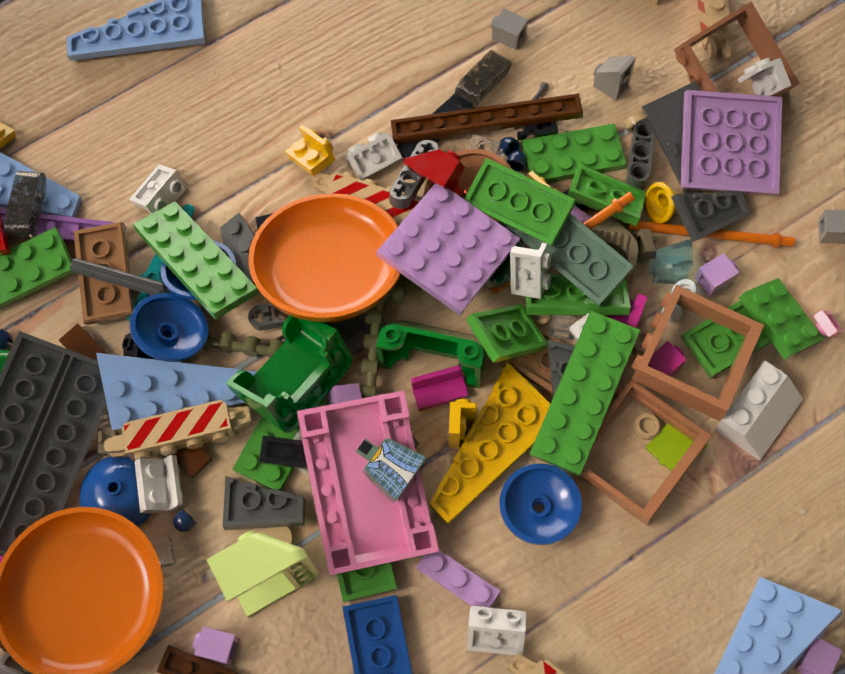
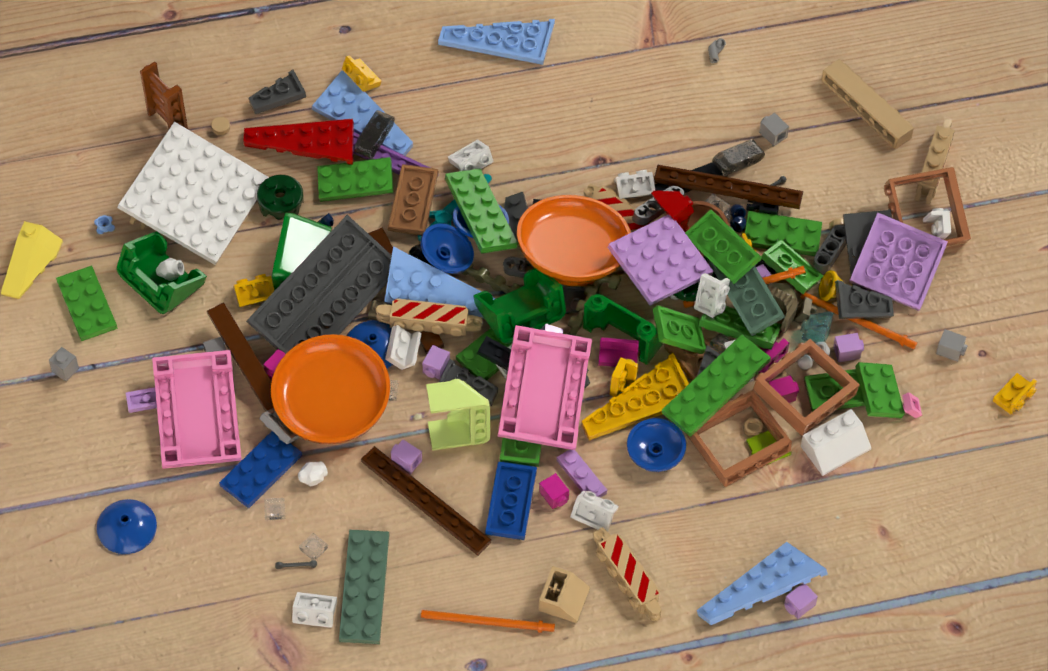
camera: 15 degrees right, 10 degrees down
(117, 277) = (422, 204): dark grey axle -> none
(183, 521) = (411, 376): dark blue hinge -> none
(209, 490) = (435, 362): none -> lavender brick
(311, 152) = (591, 167): yellow bracket -> none
(390, 466) = (564, 382): torso -> none
(433, 622) = (554, 491): none -> dark pink brick
(614, 75) = (836, 188): light grey slope -> none

